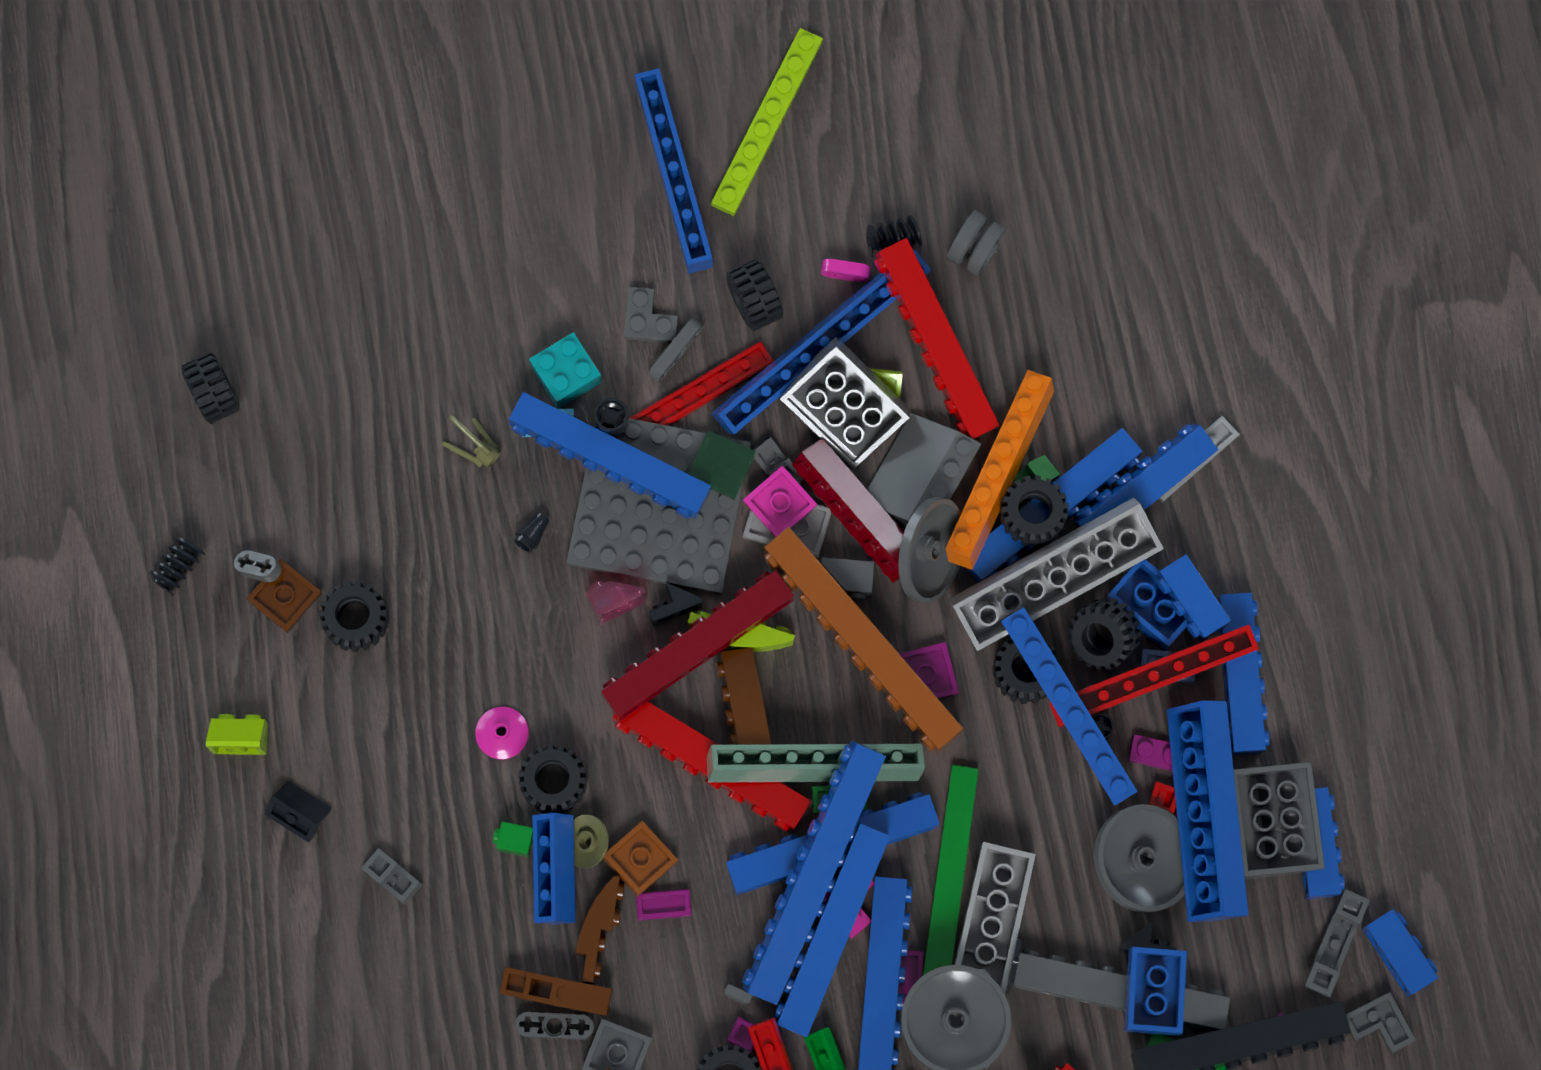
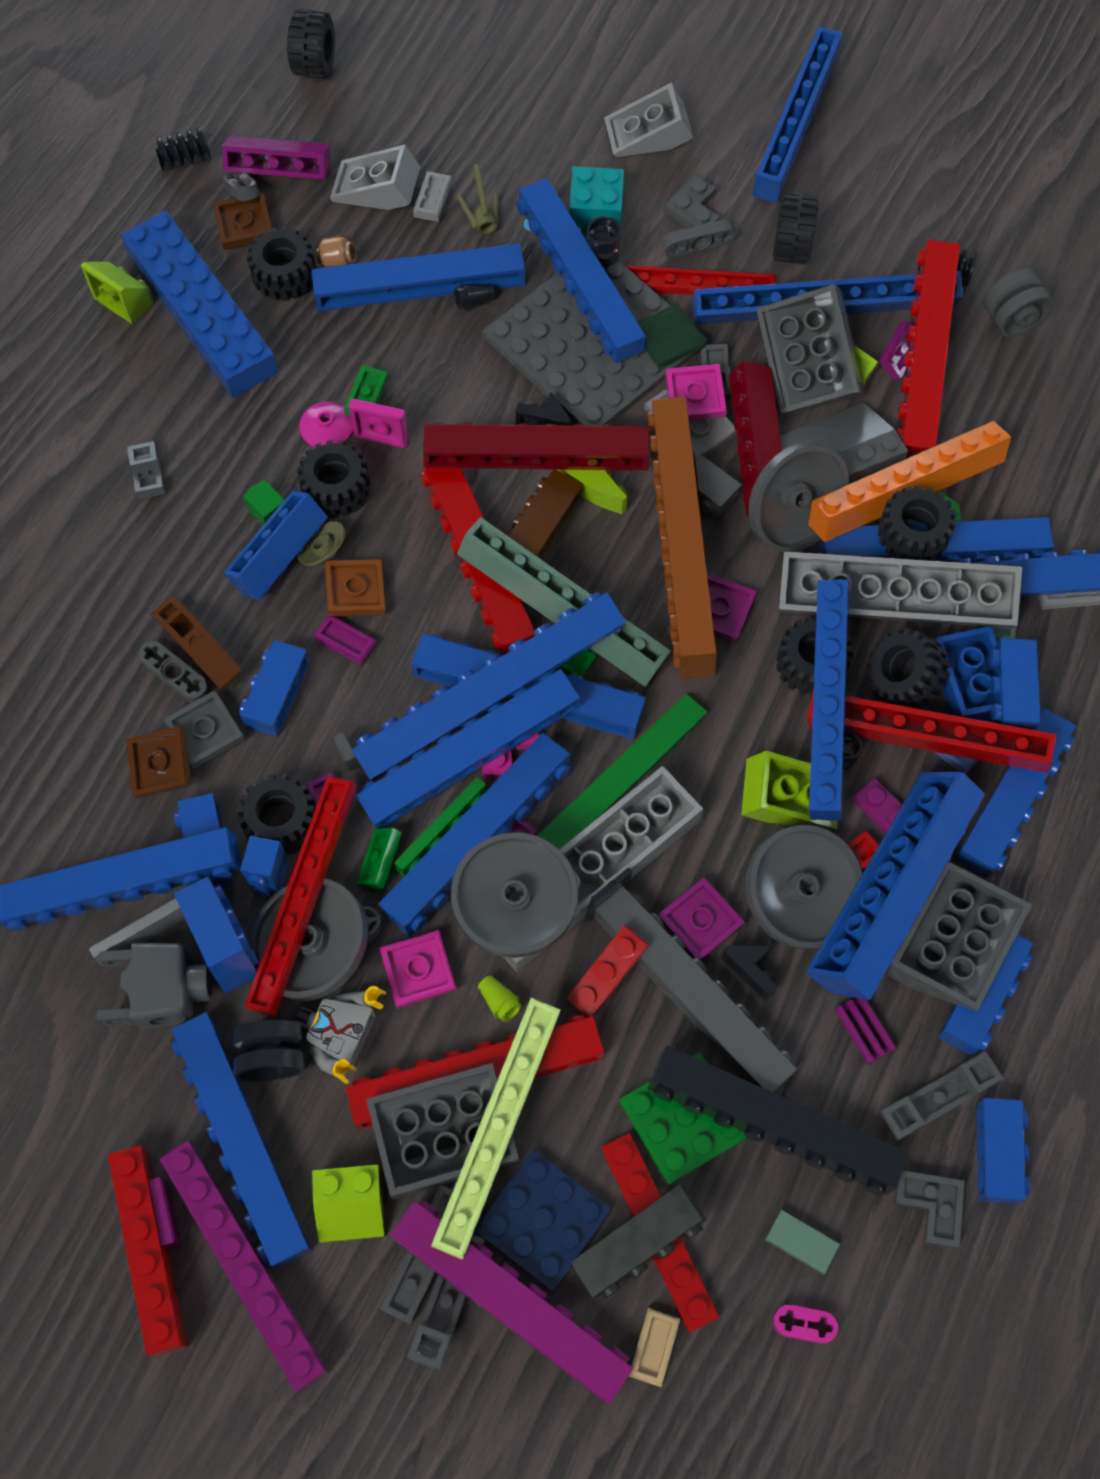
camera: 40 degrees right, 10 degrees down
(266, 518) = (276, 157): none -> magenta brick
(297, 811) = (116, 373): black panel -> none
(313, 700) = (199, 304): none -> blue brick
(365, 479) = (377, 179): none -> light grey slope
(389, 574) = (336, 251): none -> medium nougat head
(424, 461) = (432, 196): none -> light grey plate
(474, 548) = (416, 276): none -> blue brick
(514, 684) = (367, 386): none -> green plate
(553, 708) = (379, 423): none -> dark pink plate
(554, 265) = (649, 124): none -> light grey slope
(600, 918) = (282, 611): reddish brown slope -> none
(614, 599) = (498, 381): clear pink slope -> none
(643, 983) = (274, 688): none -> blue brick
(766, 122) = (902, 131): lime plate -> none
(845, 270) = (885, 262): dark pink beam -> none
(854, 1013) = (440, 826): none -> green plate
(908, 351) = (893, 356): none -> magenta plate
(1052, 1022) = (608, 971): none -> red plate
(1073, 795) = (779, 791): none -> lime slope
(1087, 934) = (701, 919): none -> magenta plate
(1155, 991) = (725, 1005): blue brick -> none
(1274, 940) = (876, 1025): none -> magenta tile

